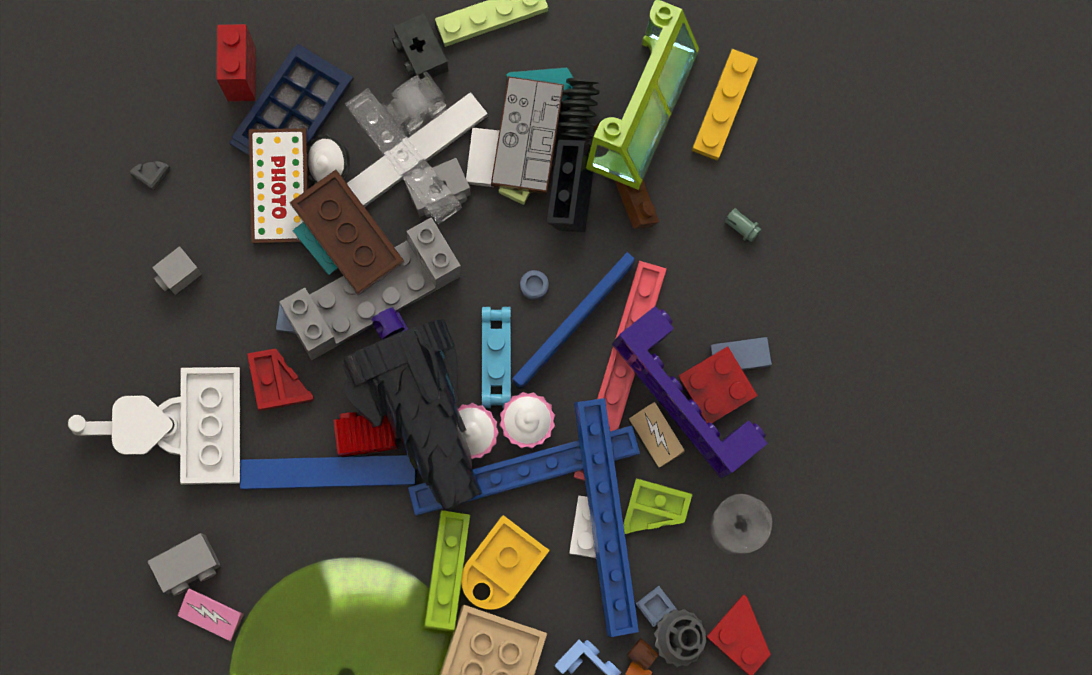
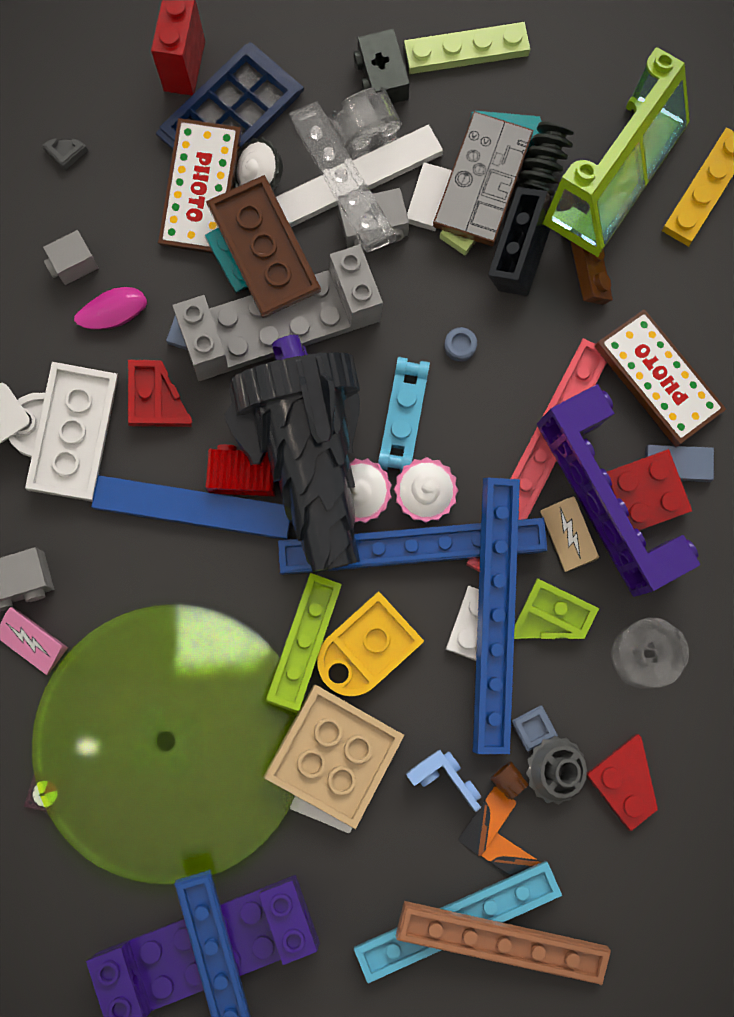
camera: 15 degrees right, 0 degrees up
(222, 309) = (111, 309): none -> dark pink arm
(574, 320) = (497, 390): blue tile -> none
(711, 284) = (660, 377): none -> tile
(743, 225) = (706, 320): sand green pin -> none

